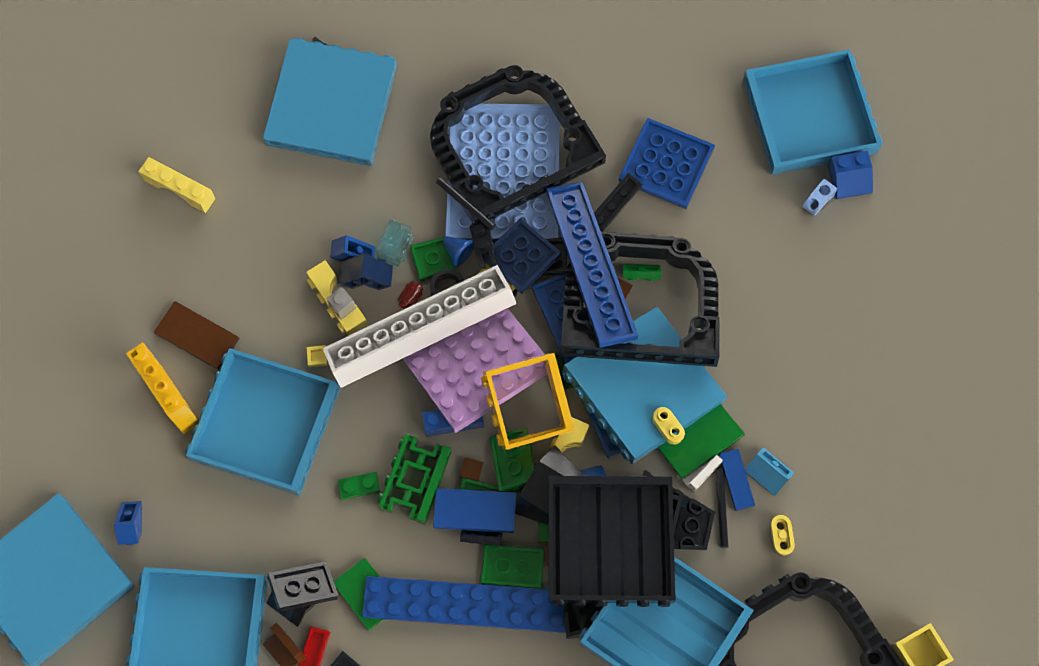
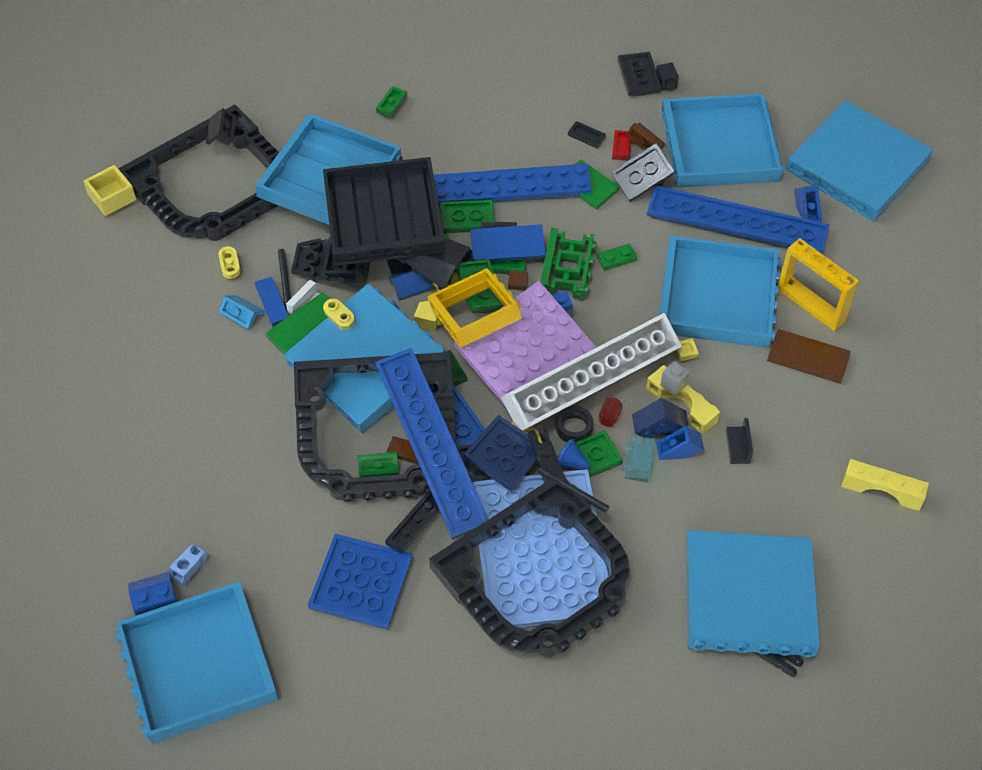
camera: 170 degrees right, 15 degrees down
(214, 514) = (736, 219): none -> blue plate
(295, 248) = (740, 443): none -> black panel

